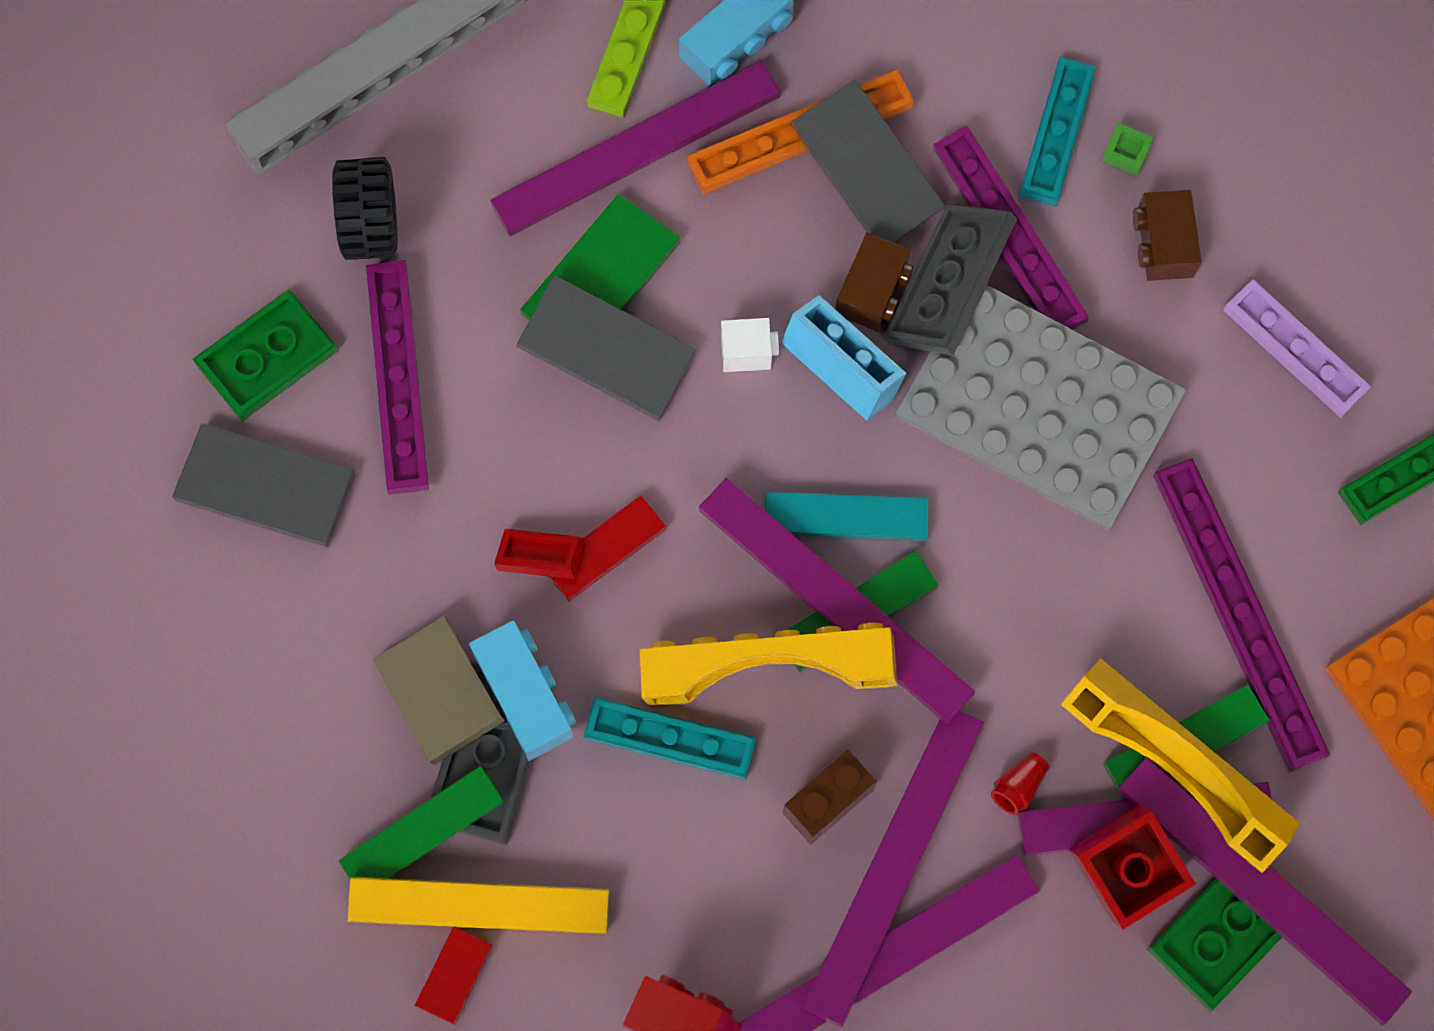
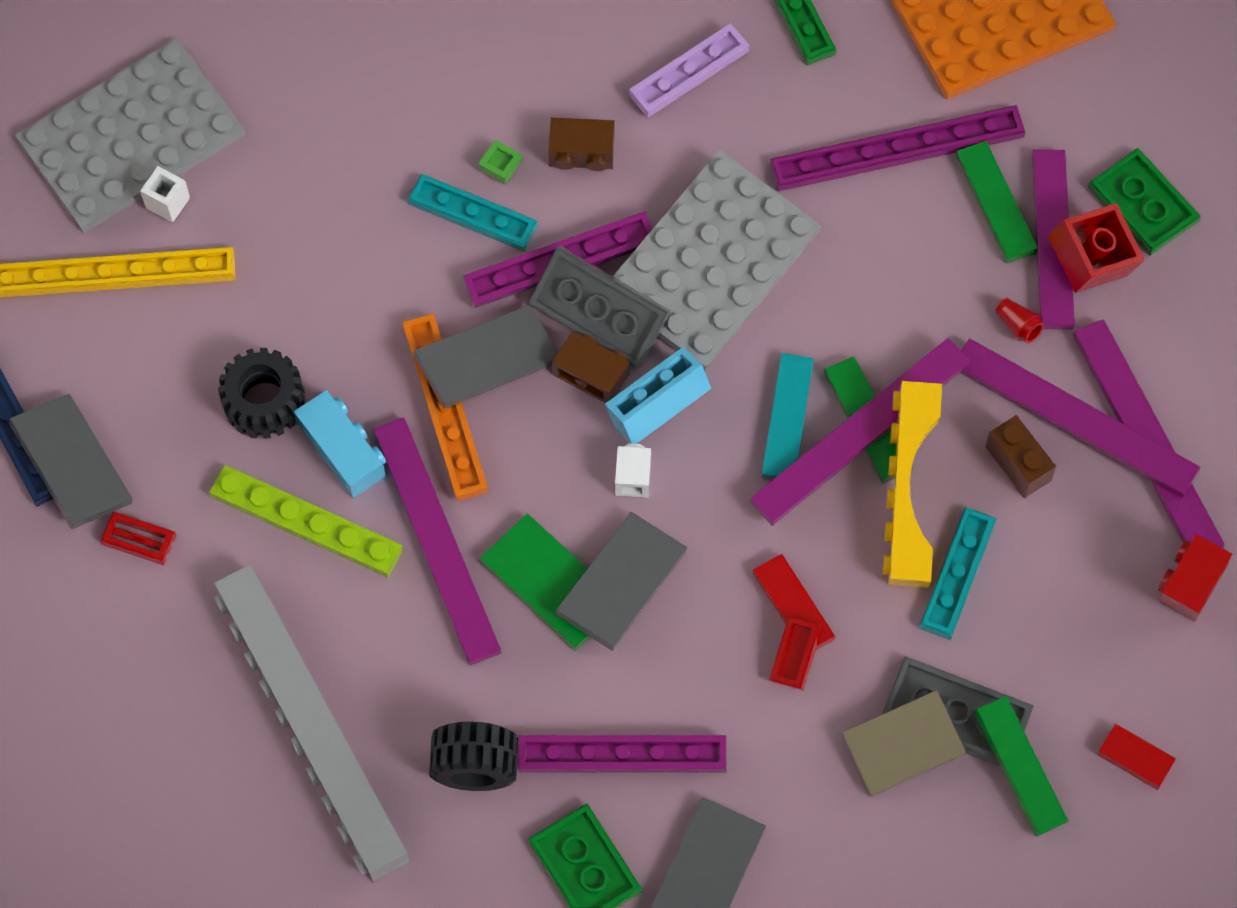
camera: 80 degrees left, 5 degrees down
(478, 905) = (1083, 730): yellow tile -> none
(523, 689) = (914, 672): medium azure brick -> none
(1241, 811) = (977, 235): yellow arch -> none
(1268, 895) = (1116, 165): magenta tile -> none

